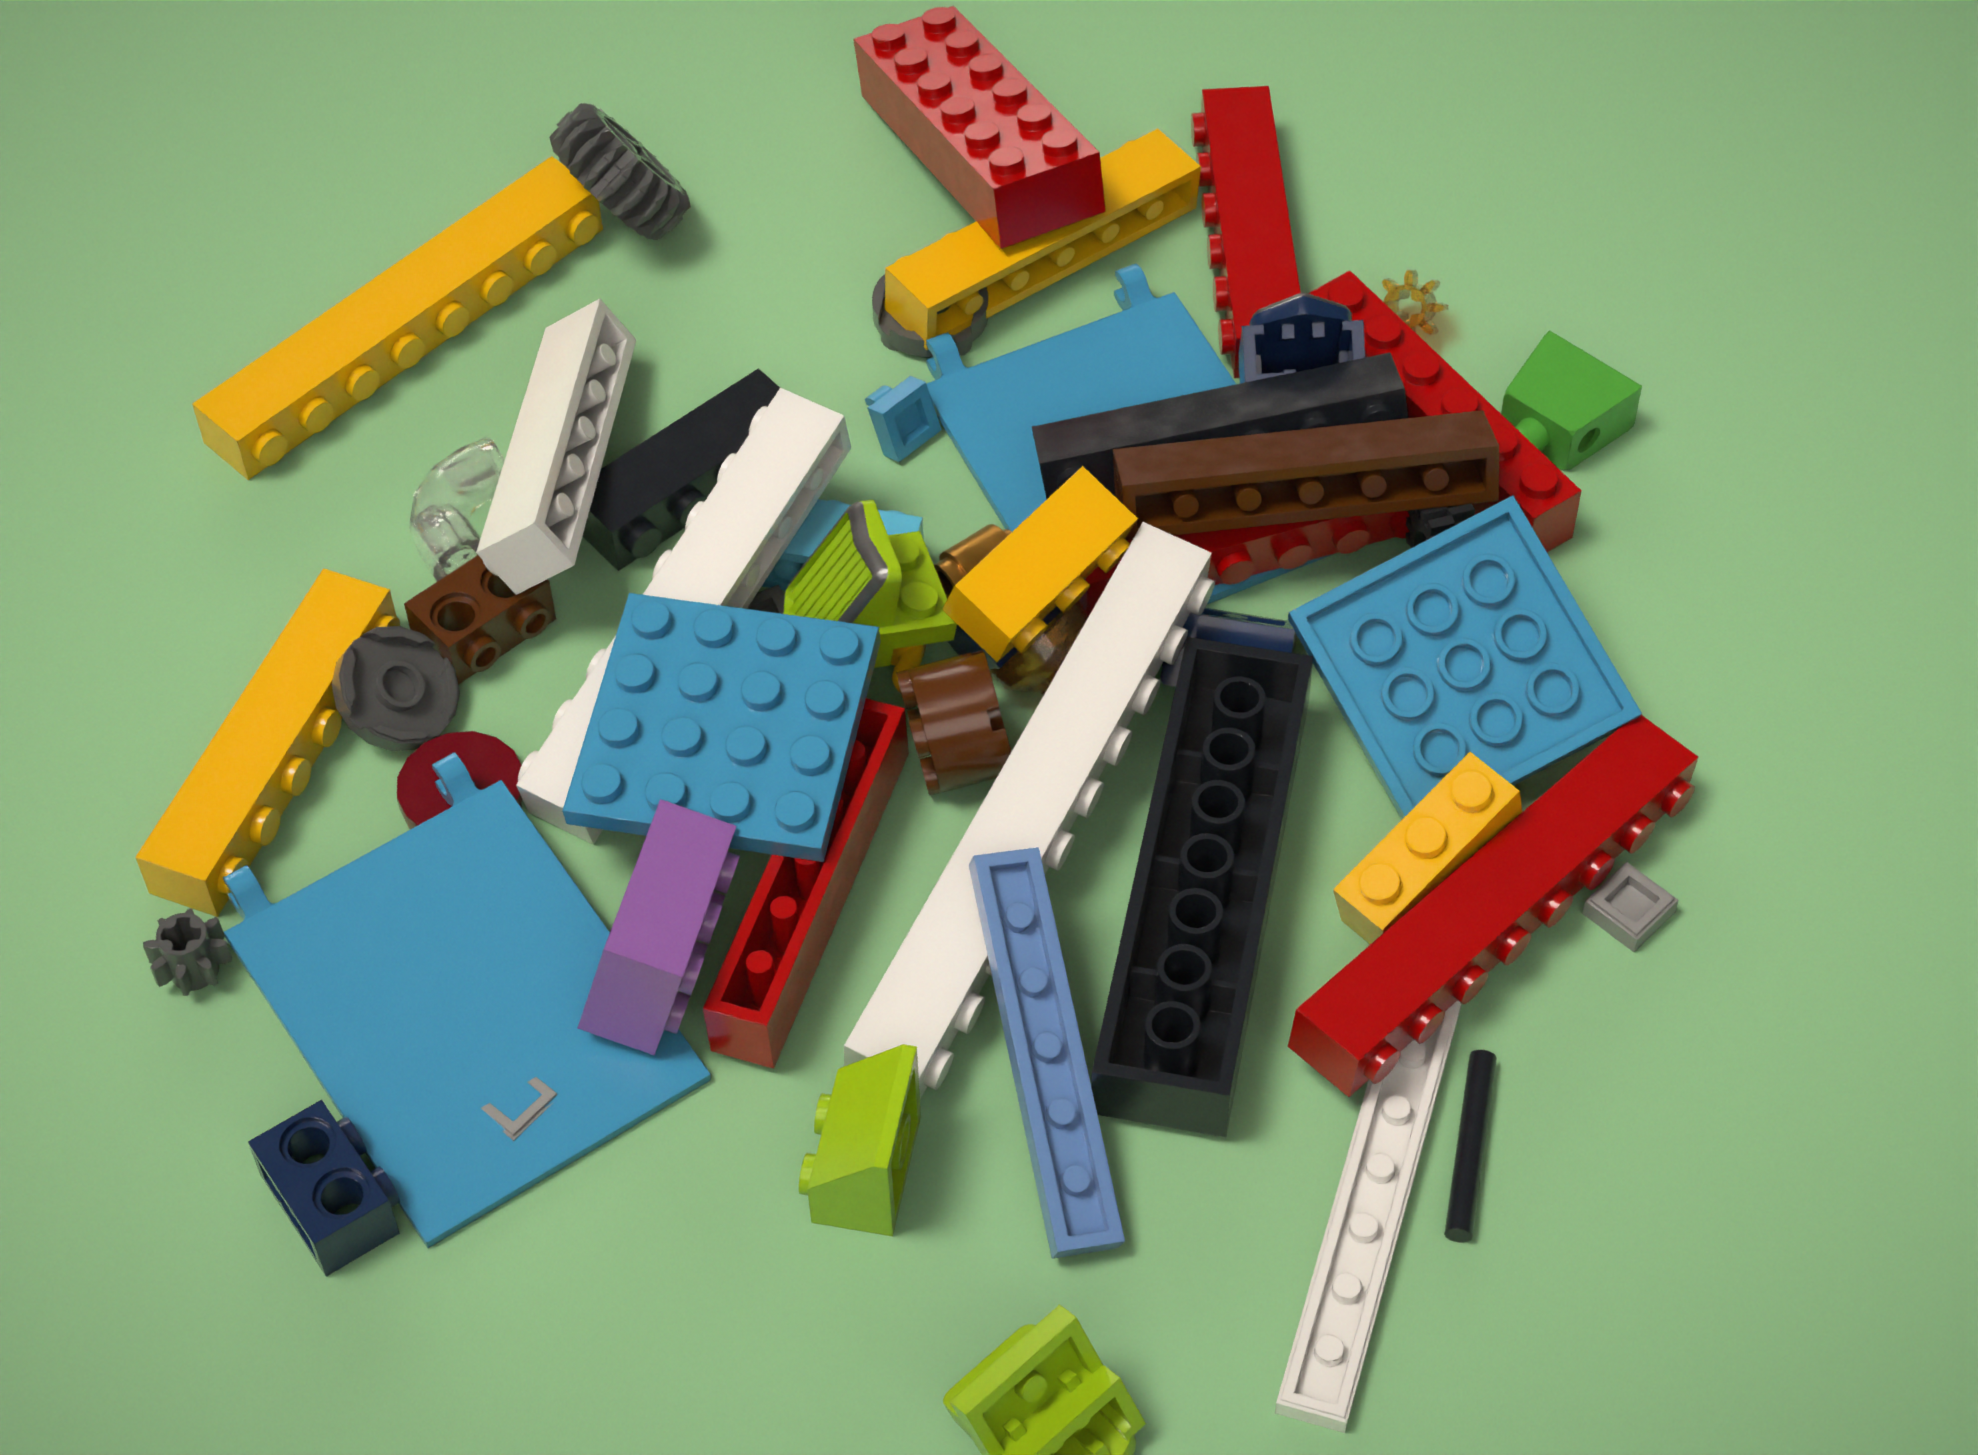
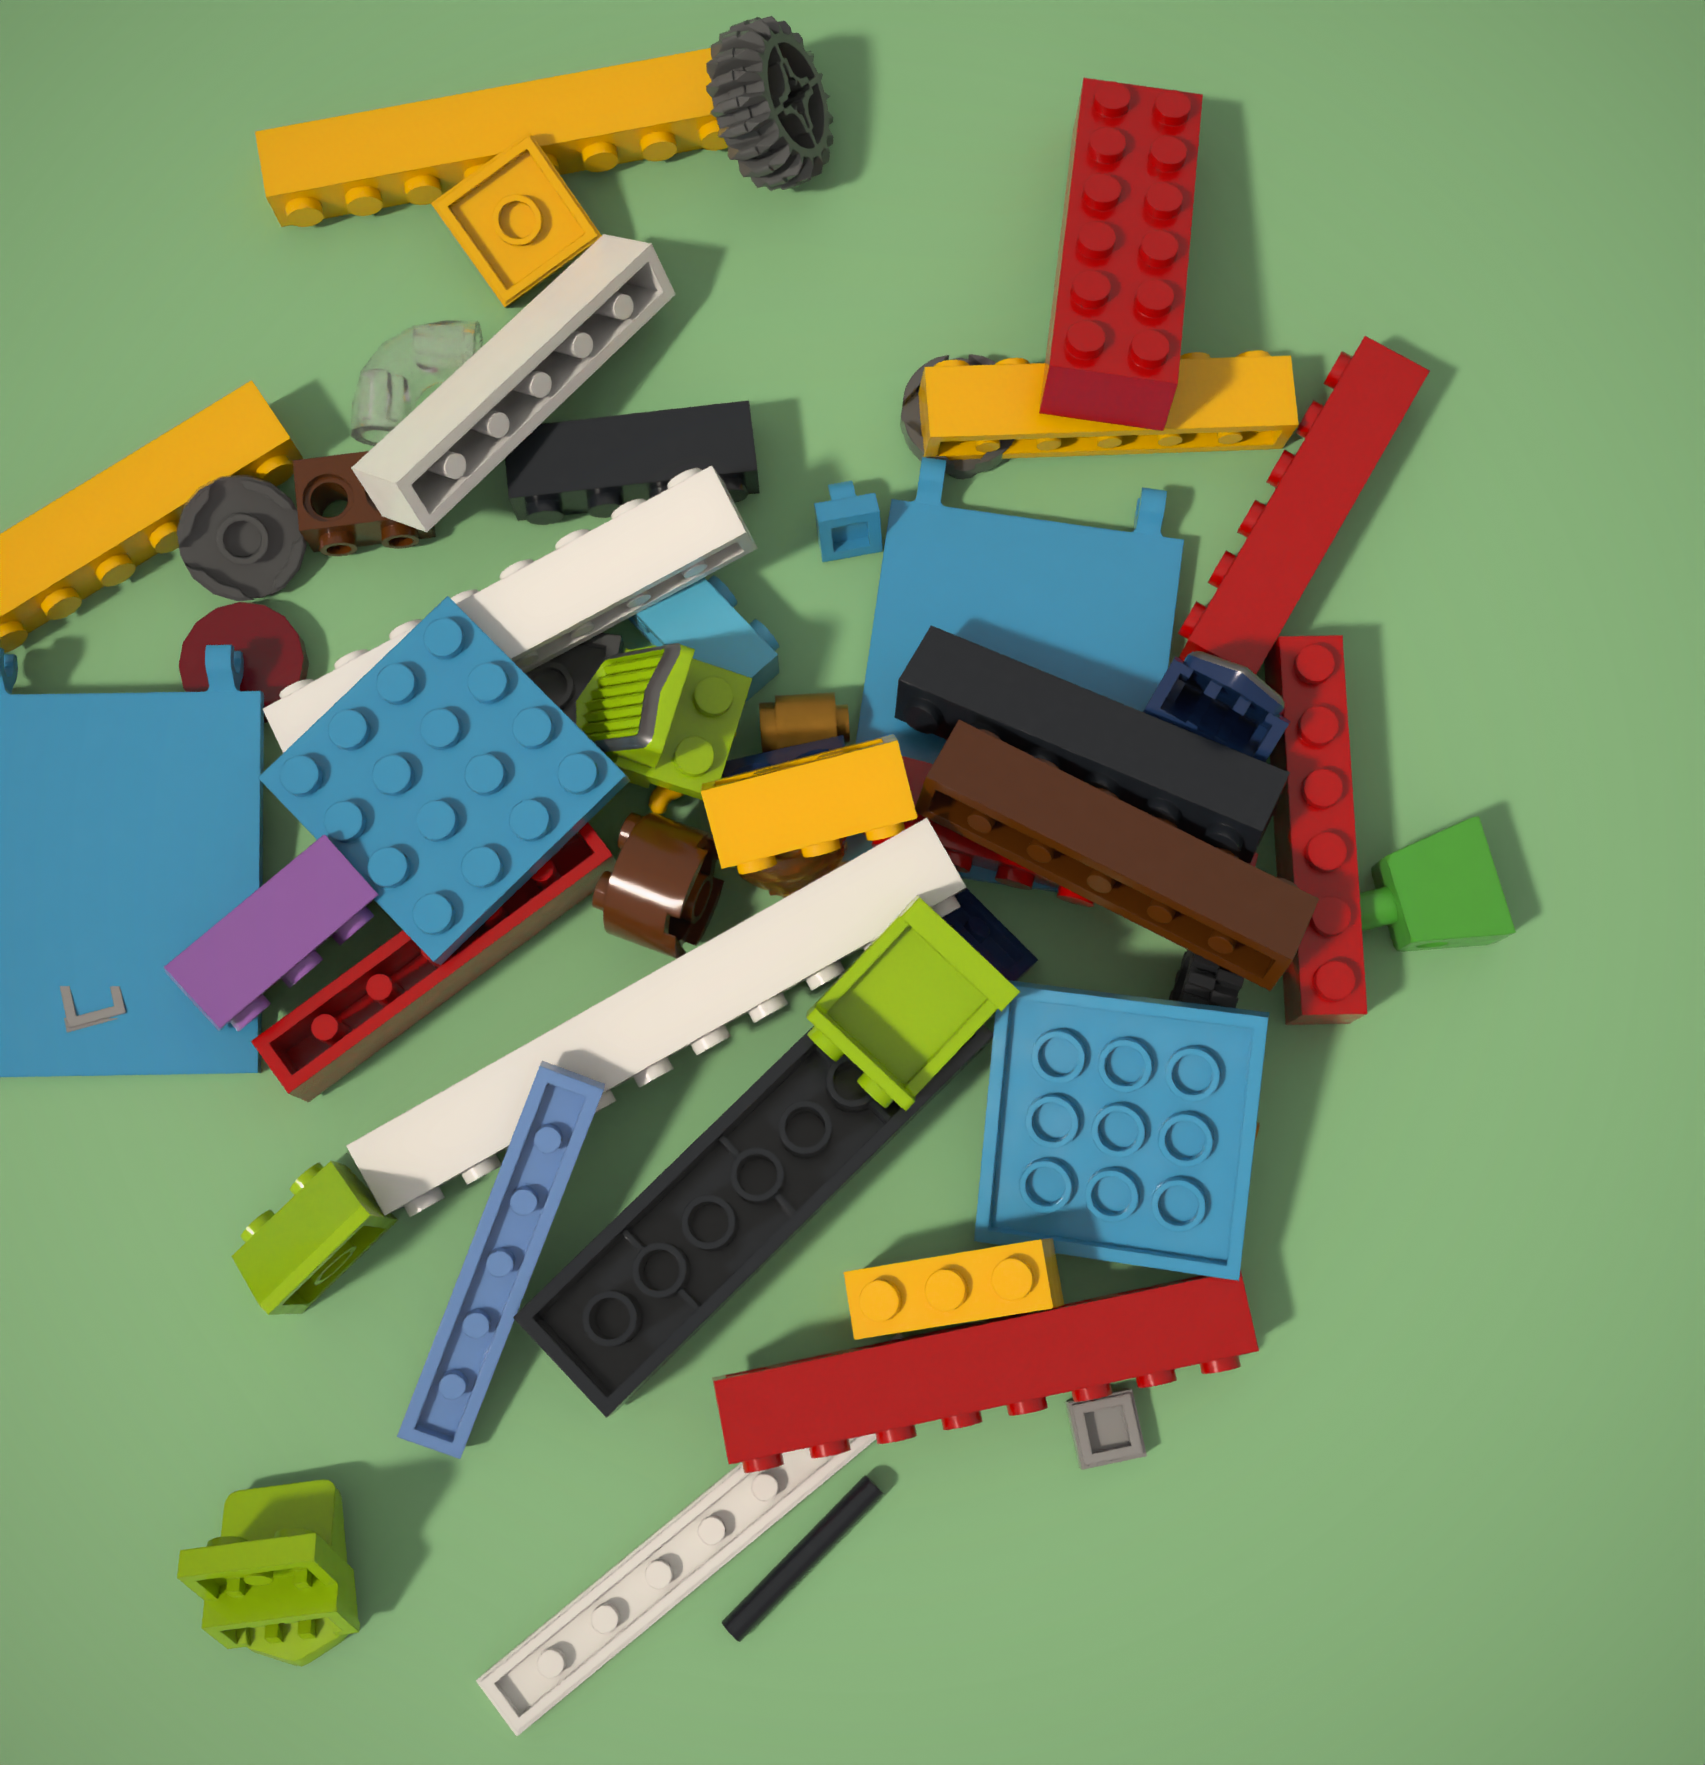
camera: 30 degrees right, 25 degrees up
(463, 357) = (517, 219): none -> yellow tile
(1234, 645) = (908, 1005): none -> lime panel
(1419, 293) = (1381, 696): clear orange gear -> none

